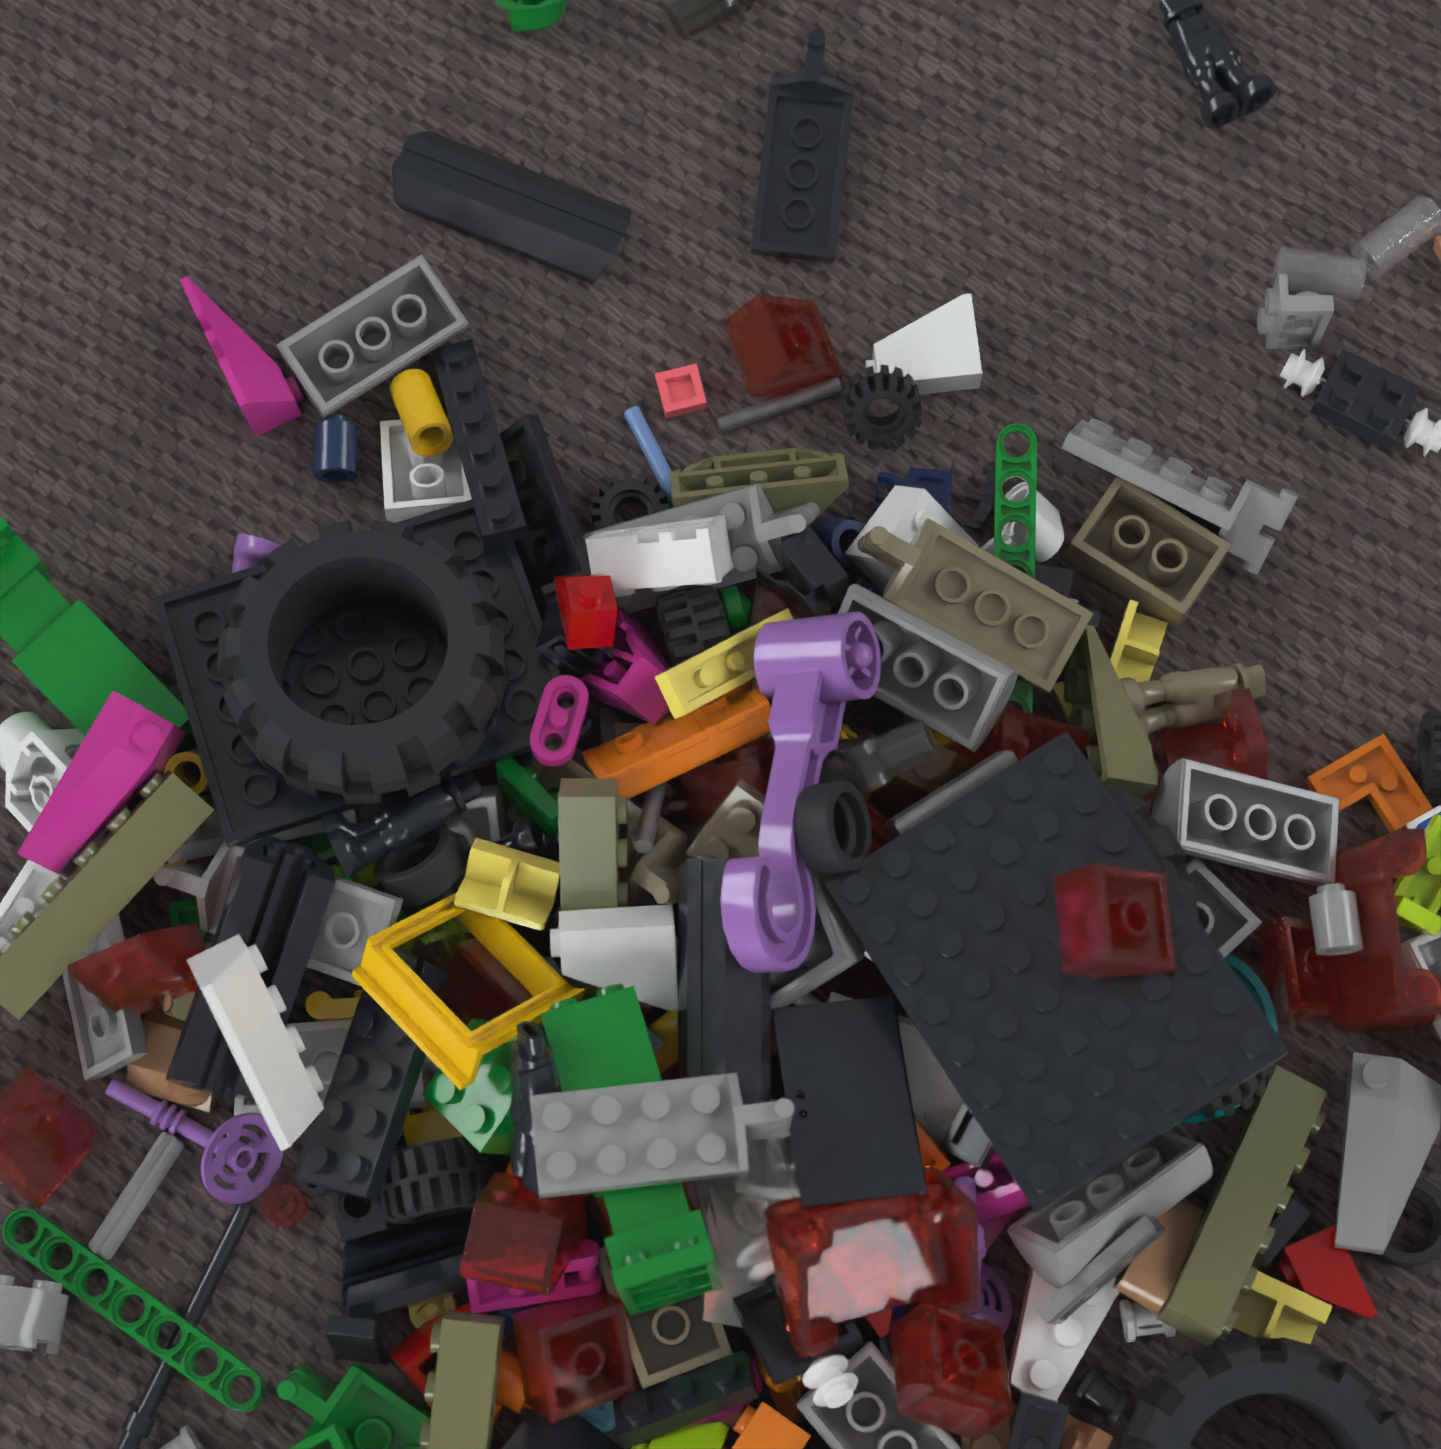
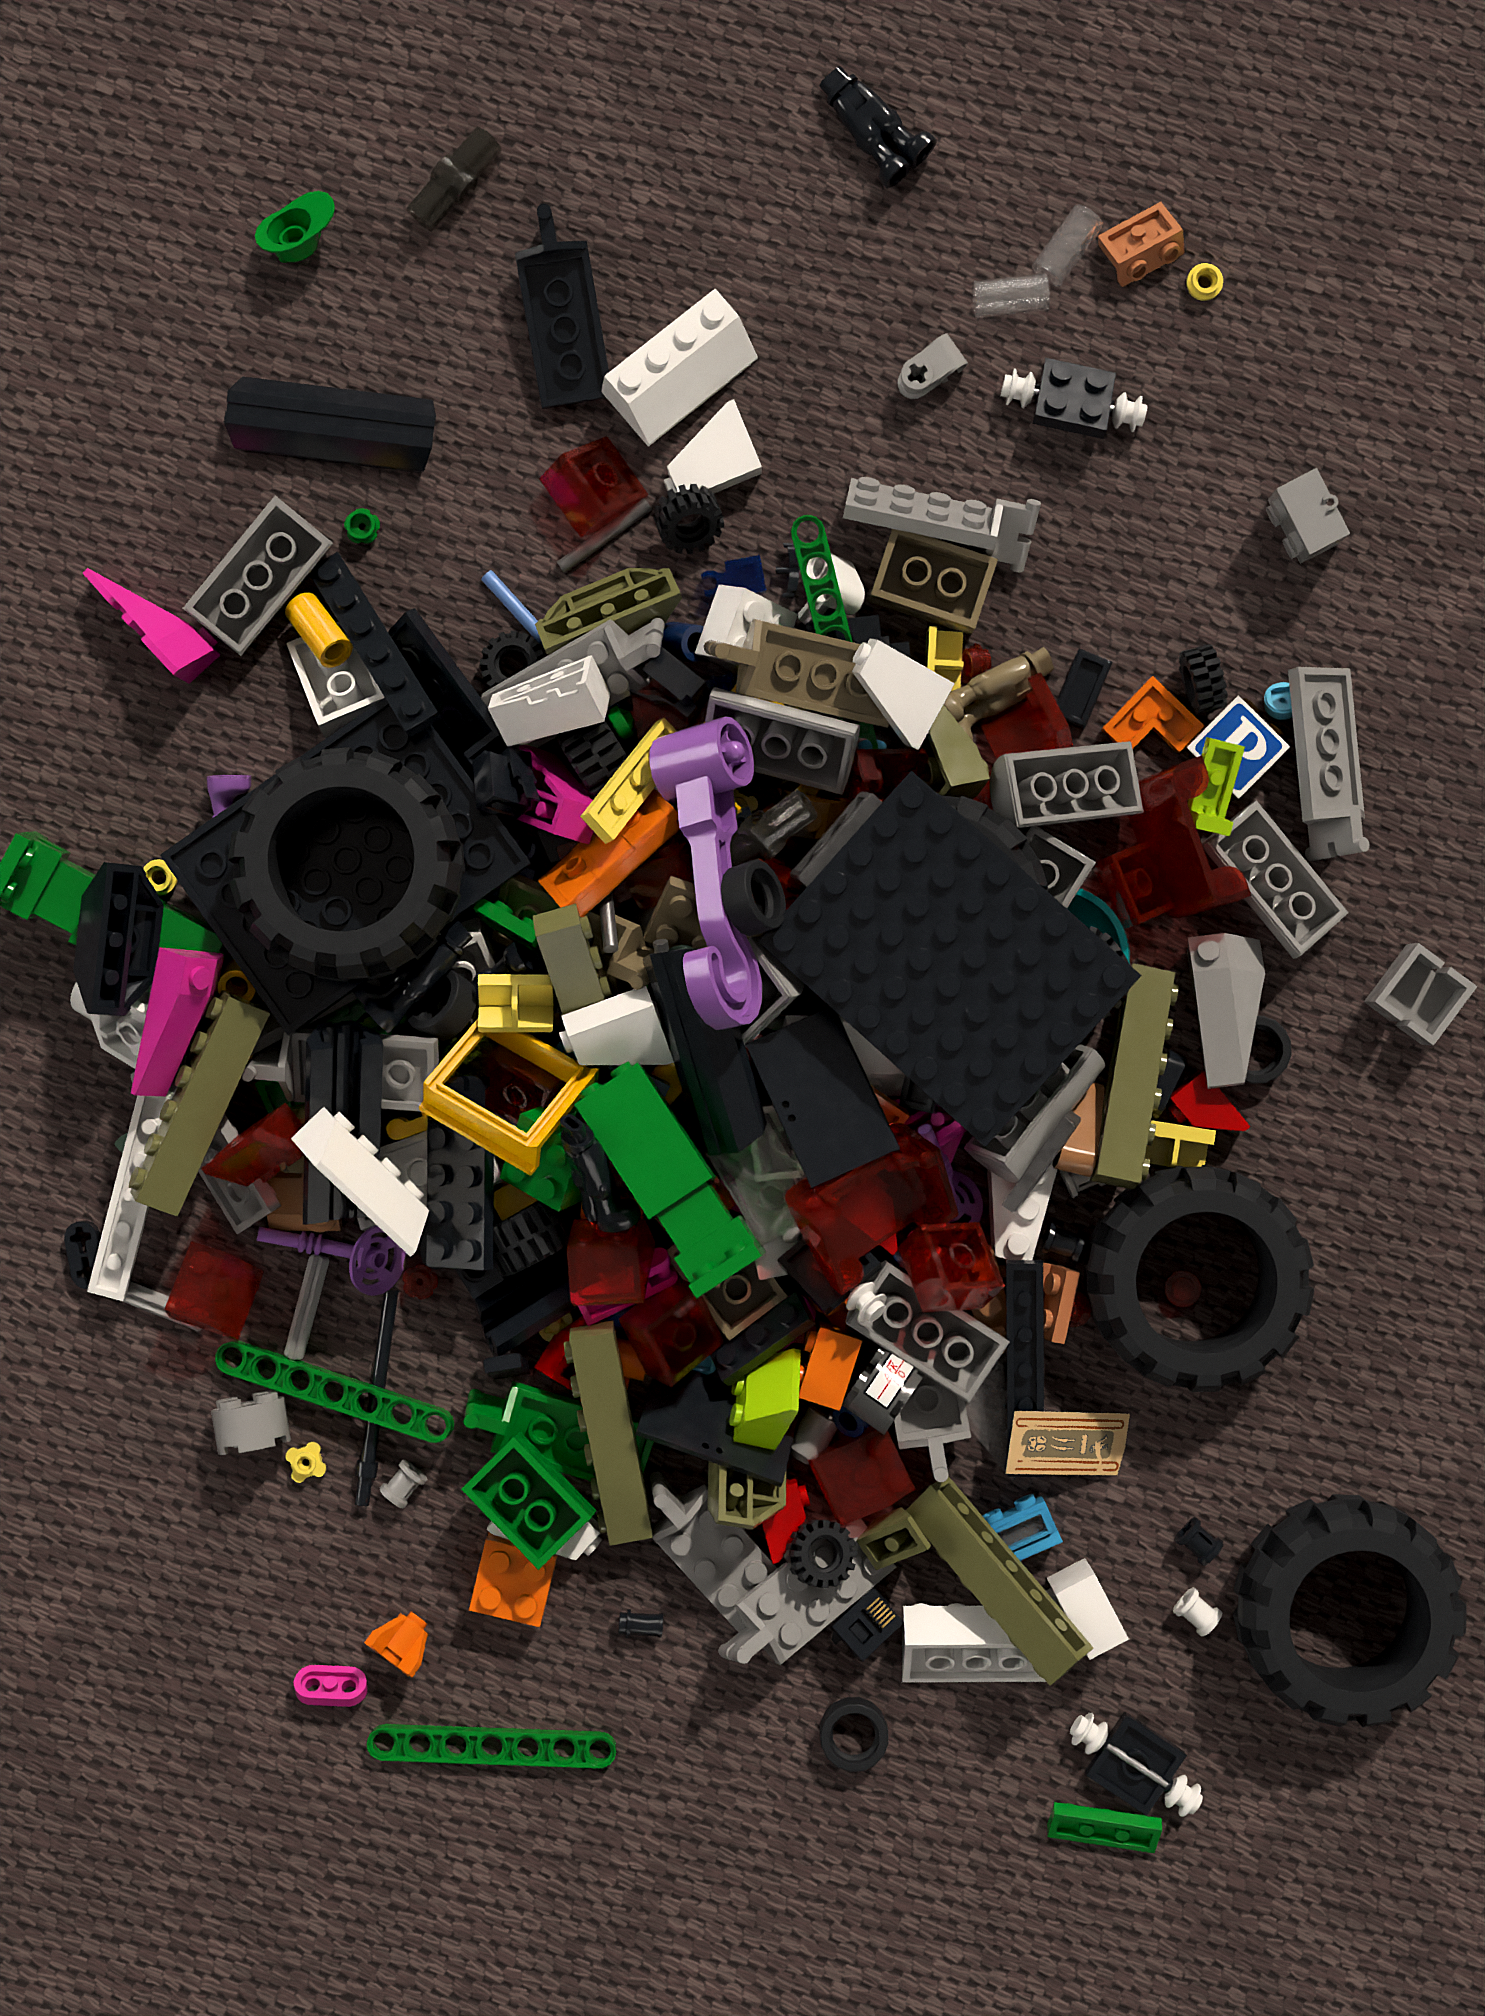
camera: 20 degrees left, 15 degrees up
(68, 668) = (117, 939): none -> black wedge
(77, 1400) = (301, 1471): none -> light yellow plate
(138, 626) = (170, 882): none -> light yellow plate
(335, 449) = (258, 678): dark blue brick -> none
(507, 310) = (355, 519): none -> green plate
(559, 722) = (513, 863): dark pink plate -> none
(587, 610) = (507, 769): red slope -> none
(648, 1134) = (681, 1173): light grey hinge -> none
(681, 391) = (521, 547): coral plate -> none
(919, 245) = (680, 368): none -> white slope
(1078, 647) = (901, 689): none -> white slope
(1114, 921) = (987, 916): clear red slope -> none
(1177, 656) = (976, 660): none -> clear red plate
(1211, 322) = (933, 364): none -> light grey piece
(1293, 319) = (1000, 349): light grey bracket -> none
(1296, 725) = (1082, 687): none -> black tile
(1335, 920) = (1150, 842): light grey brick -> none

